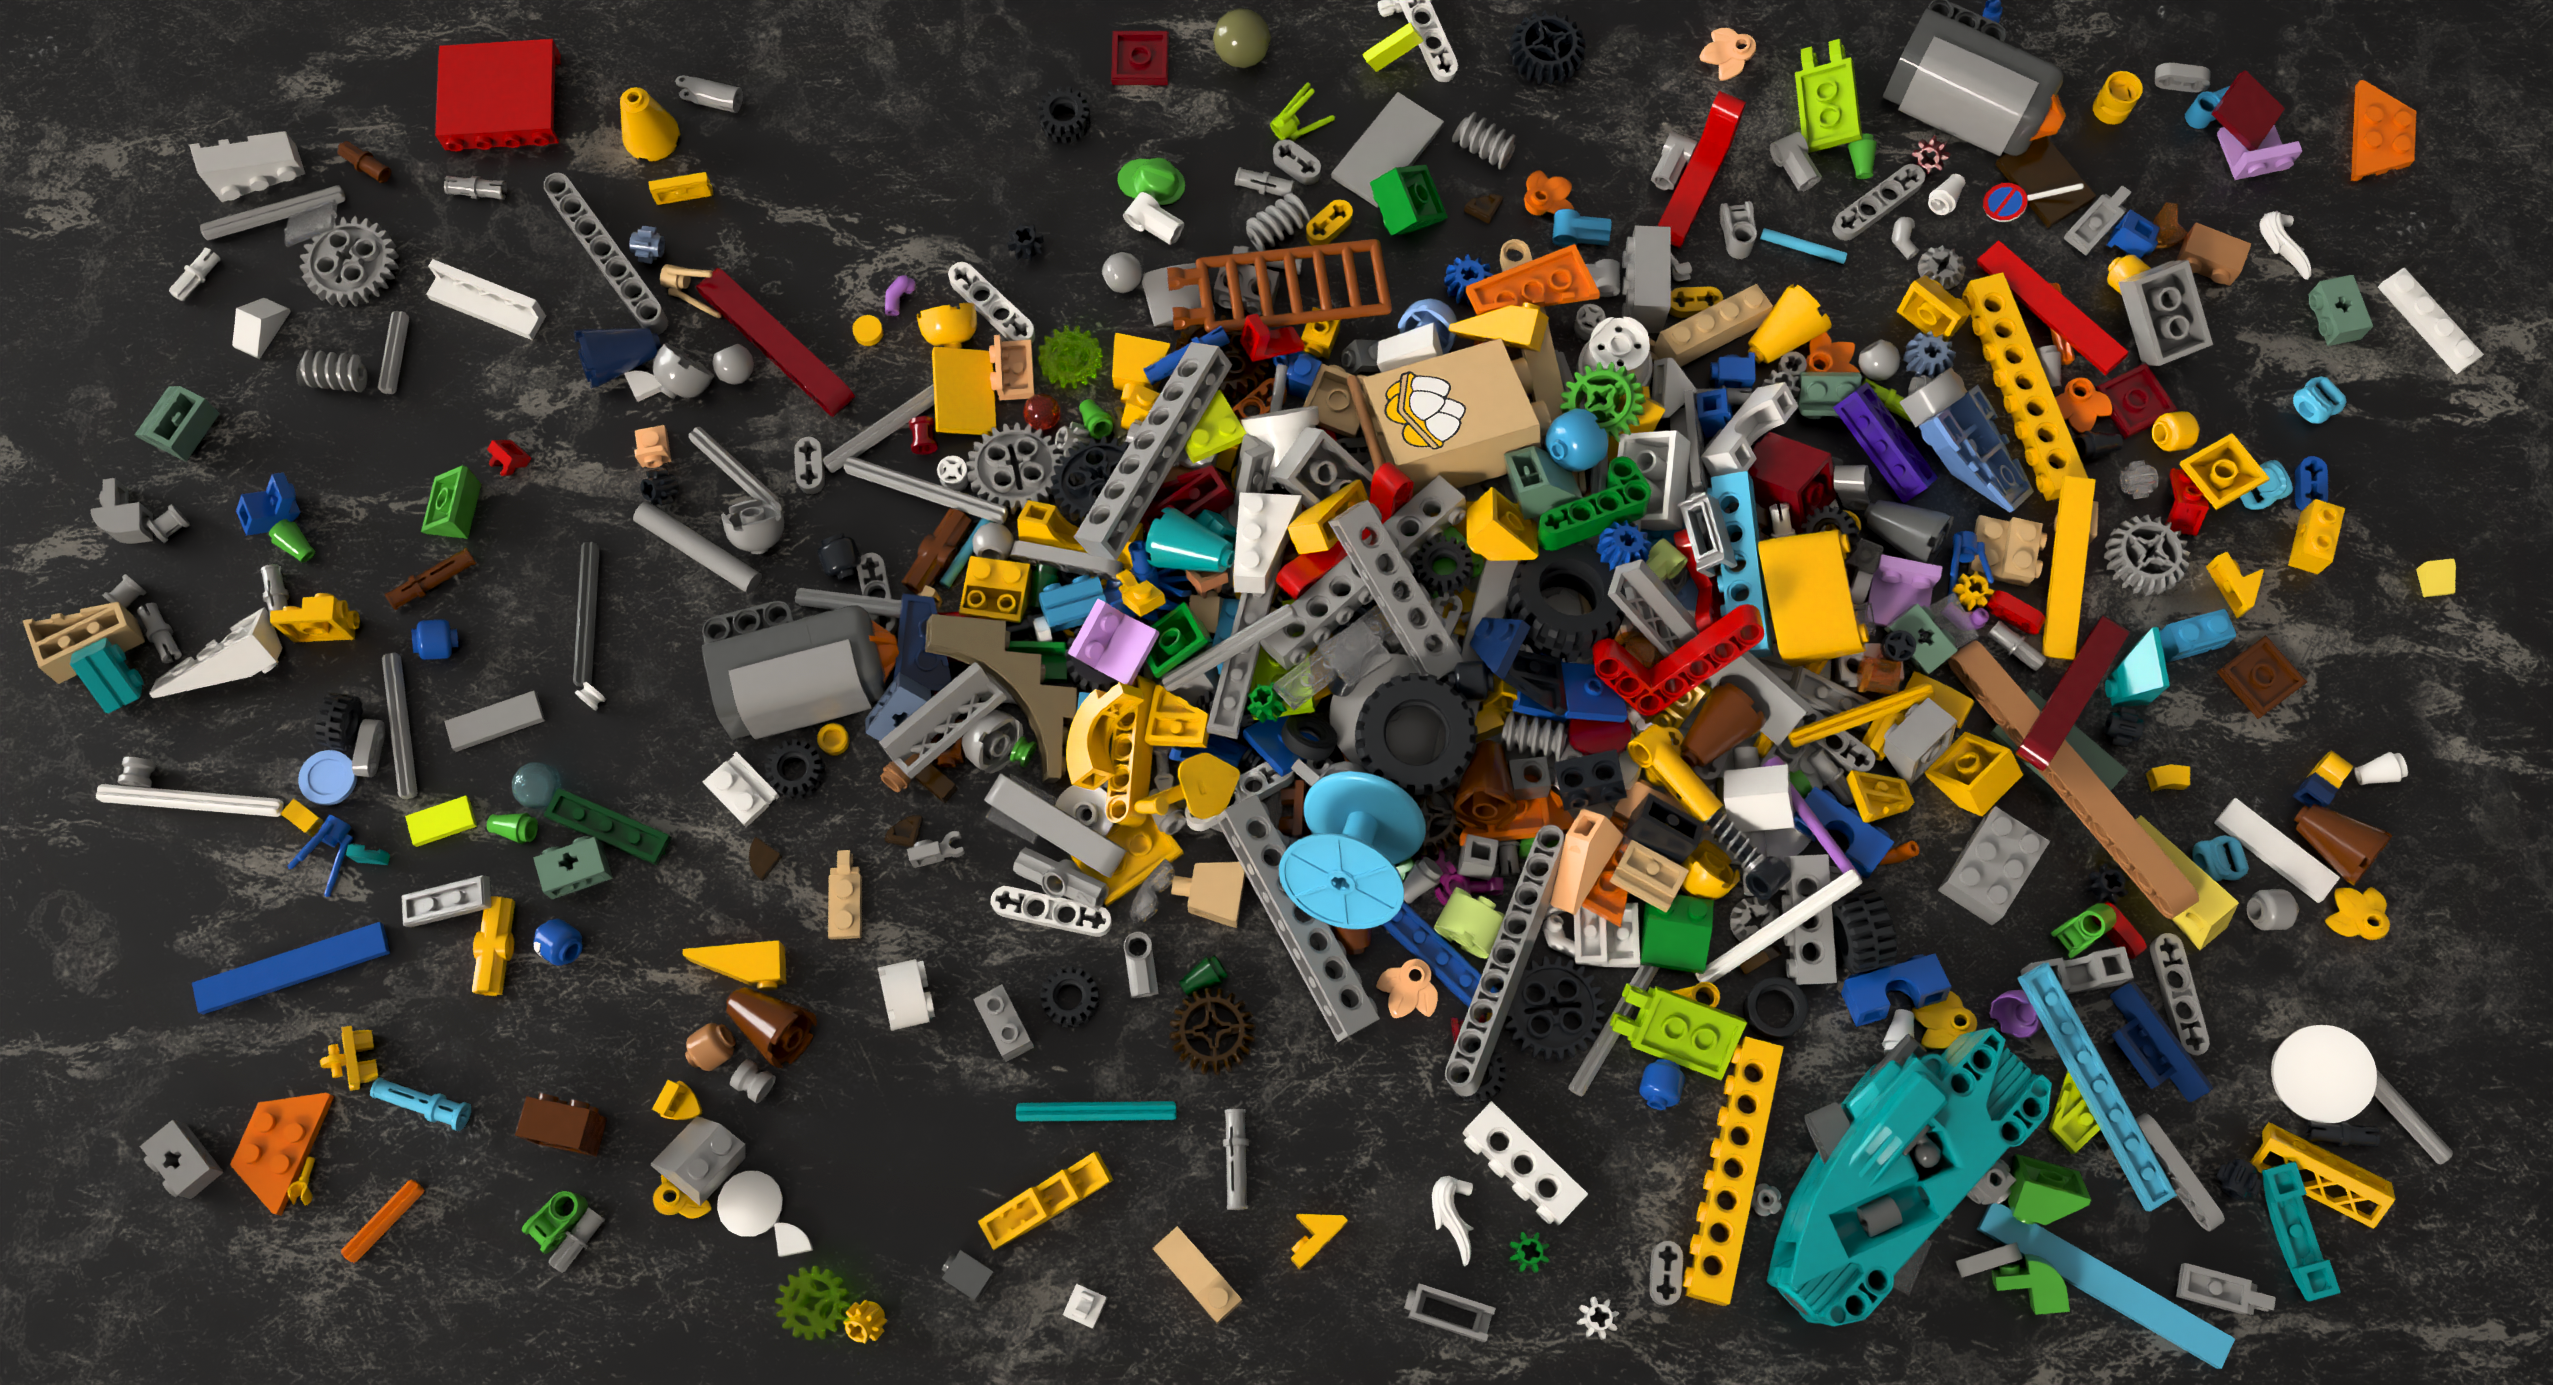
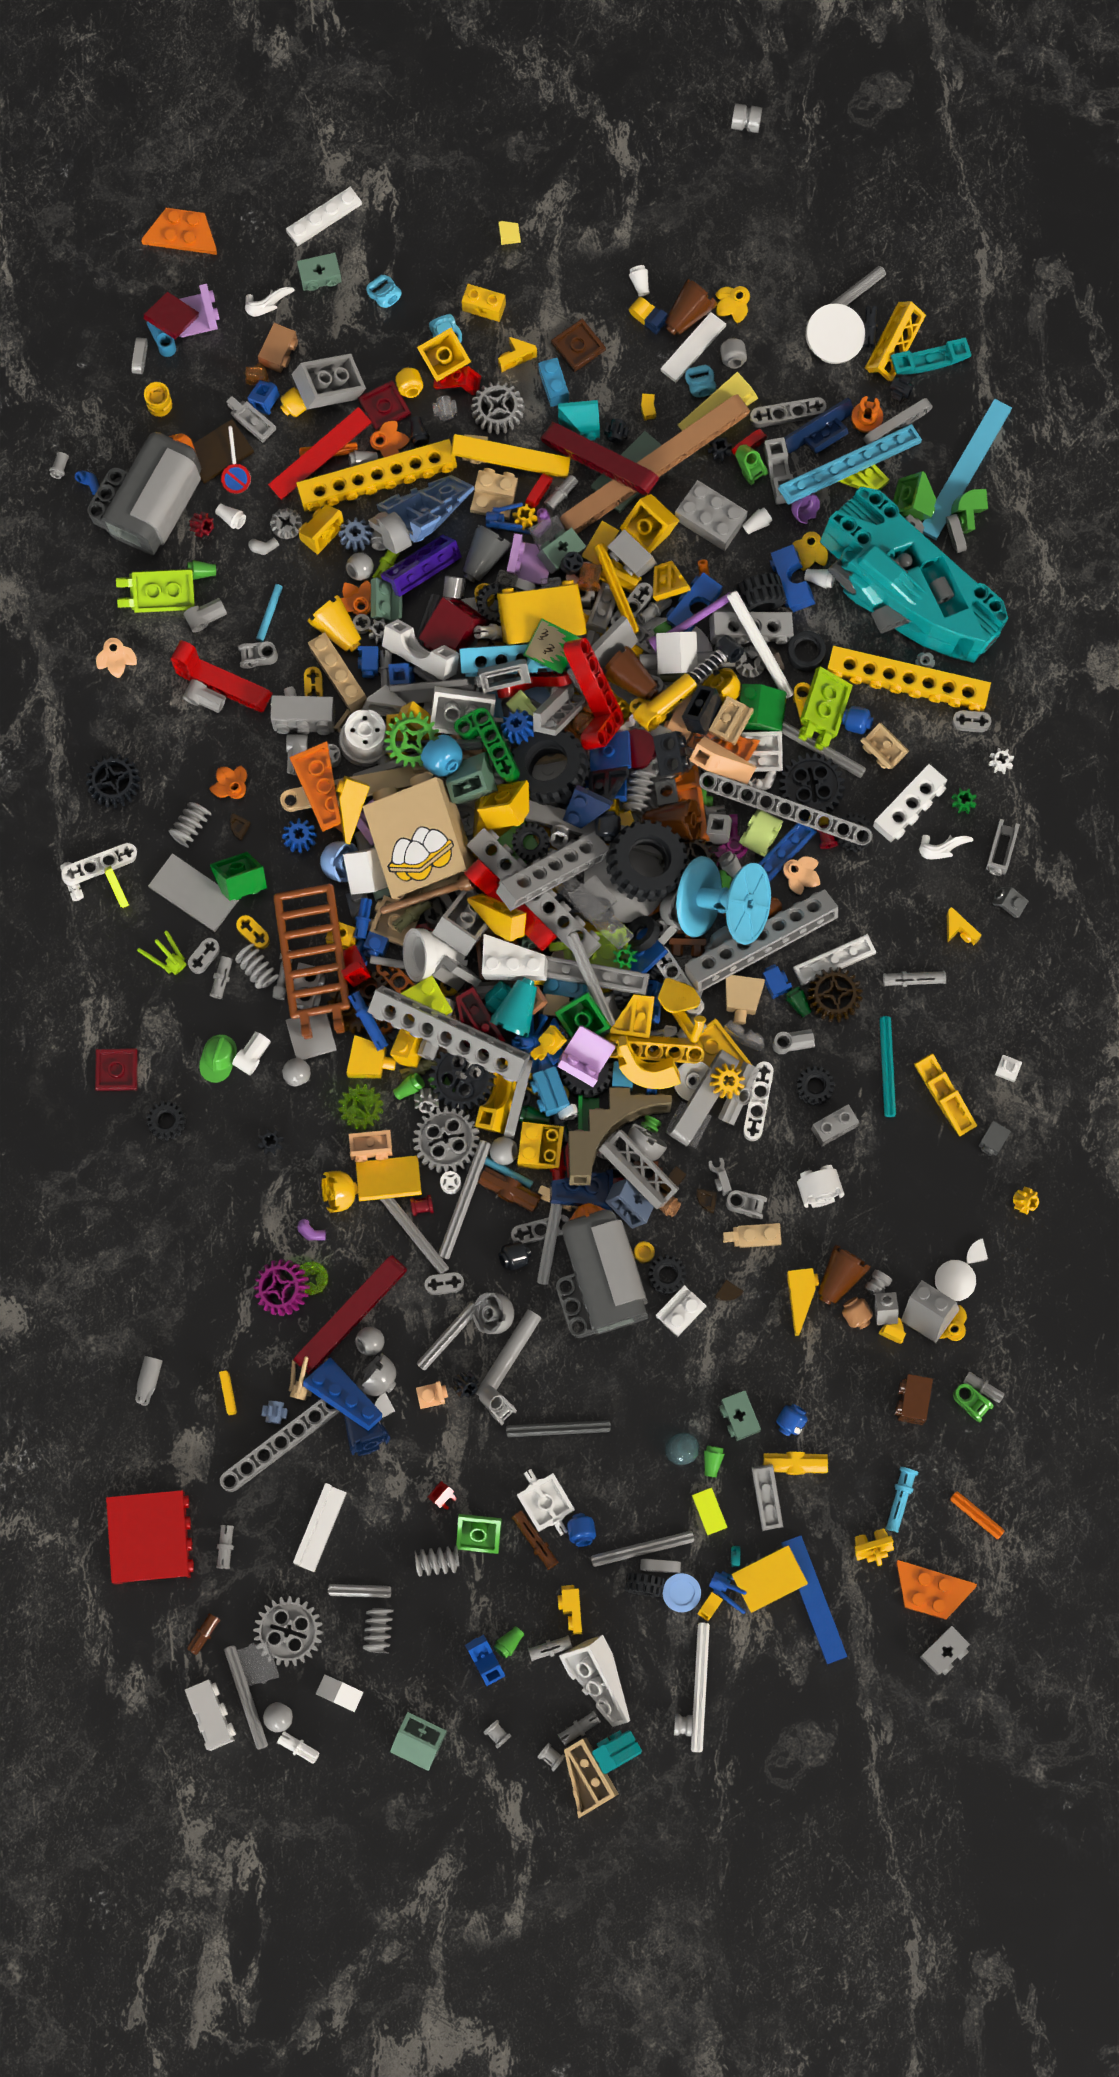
camera: 90 degrees left, 5 degrees up
(119, 518) = (498, 1767): light grey brick -> none
(234, 246) = (277, 1717): none -> light grey piece
(300, 1187) = (958, 1570): yellow hand -> none
(325, 901) = (770, 1578): none -> yellow tile
(415, 445) = (437, 1561): none -> light grey piece
(481, 593) = (545, 1502): none -> white plate
(494, 721) = (637, 1483): light grey tile -> none
(590, 696) = (619, 1417): white bush -> none
(607, 826) = (710, 1396): dark green plate -> none
(623, 527) = (496, 1403): none -> light grey piece
(646, 126) = (185, 1426): yellow cone -> none
(658, 320) = (339, 1391): none -> blue wing
(709, 1089) = (886, 1308): none -> light grey brick
(800, 257) = (275, 1271): none -> magenta gear
(816, 1317) = (1023, 1230): clear neon green gear -> none
(836, 283) = (321, 1279): none -> clear neon green gear
(867, 330) = (339, 1251): yellow tile -> none
(891, 888) = (747, 1204): none -> light grey piece
(989, 306) = (320, 1166): white beam -> none
(1041, 411) = (403, 1124): clear red piece -> none
(1081, 851) = (727, 1089): none -> yellow gear
(1198, 1275) = (987, 998): tan slope -> none
(1236, 941) = (776, 981): none -> blue brick
(1241, 38) = (106, 994): olive piece -> none
(1271, 1036) = (838, 957): none -> white tile
(1340, 354) = (363, 920): none -> blue axle
(1343, 415) = (411, 915): none -> olive pin
(1360, 1321) = (1010, 901): none -> dark grey bracket
(1461, 613) = (562, 830): none -> light grey bush
(1573, 229) = (258, 764): dark azure piece -> none
(1617, 1125) = (884, 747): none -> tan bracket
(1763, 589) = (548, 645): none -> dark tan slope
(1878, 201) = (234, 562): light grey beam -> none
(1989, 939) = (757, 521): none -> white cone
(2191, 1130) = (867, 408): none -> orange piece
(2221, 1290) = (967, 404): light grey hinge -> none
(2304, 484) = (444, 302): blue beam -> none

